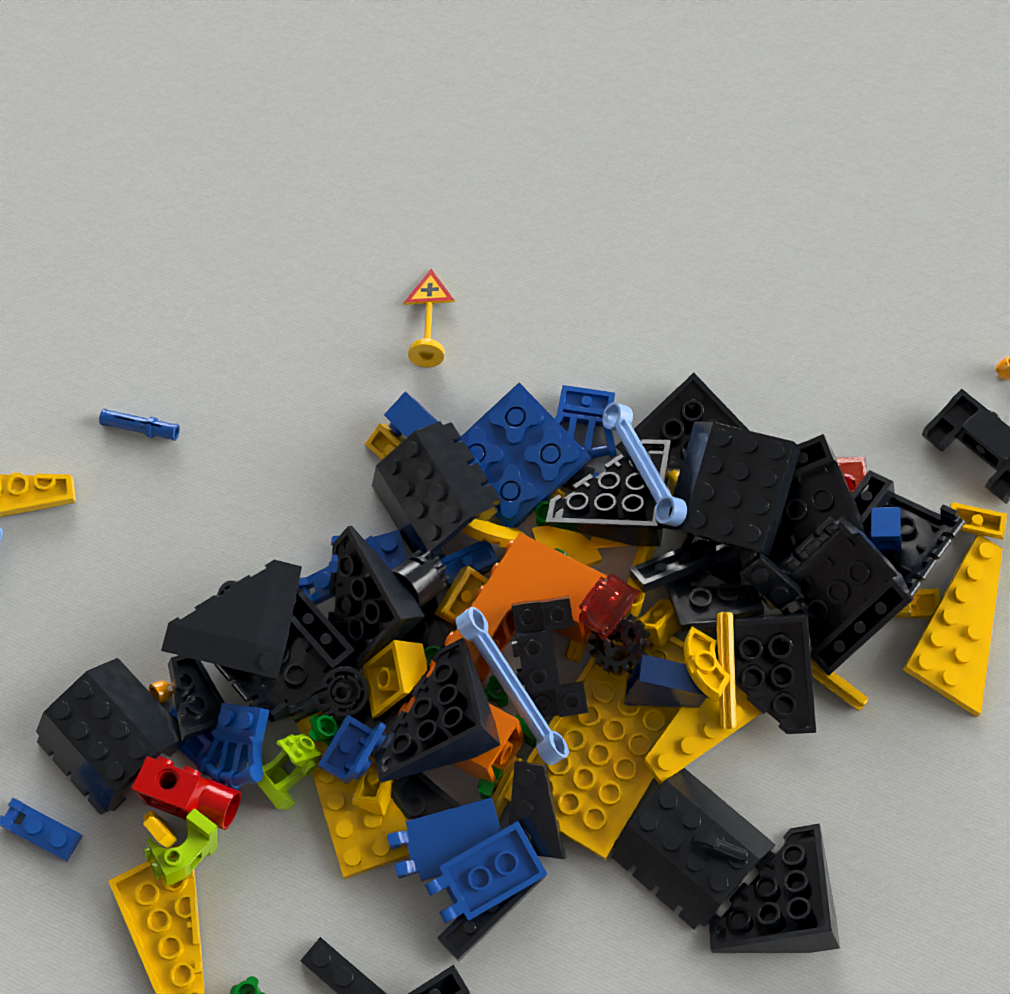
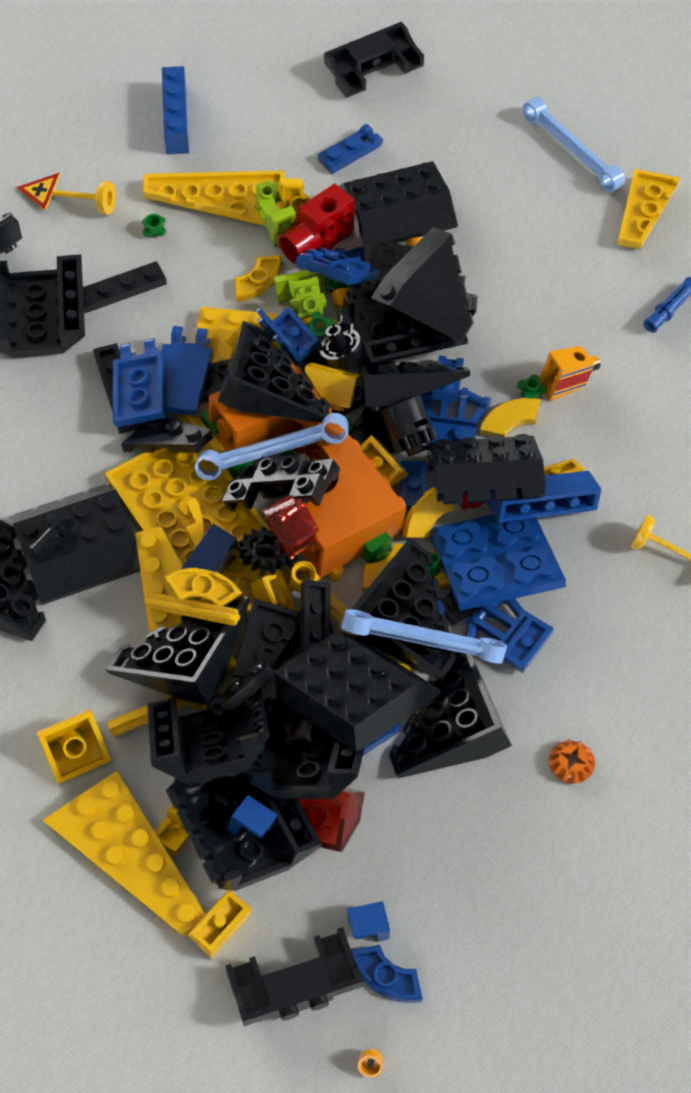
camera: 110 degrees right, 5 degrees down
(265, 472) = (567, 371): none -> light orange torso
(270, 735) = (338, 297): none -> light orange hinge
(272, 837) = (258, 279): none -> yellow tile
(305, 513) = (527, 391): none -> green plate
(340, 514) = (510, 415): none -> yellow tile
(635, 718) = (195, 531): none -> yellow slope
(665, 336) = (578, 772): none -> orange gear
(900, 724) = (74, 746): none -> yellow slope
(904, 414) = (369, 921): none -> blue panel
(935, 387) = (385, 977): none -> blue tile

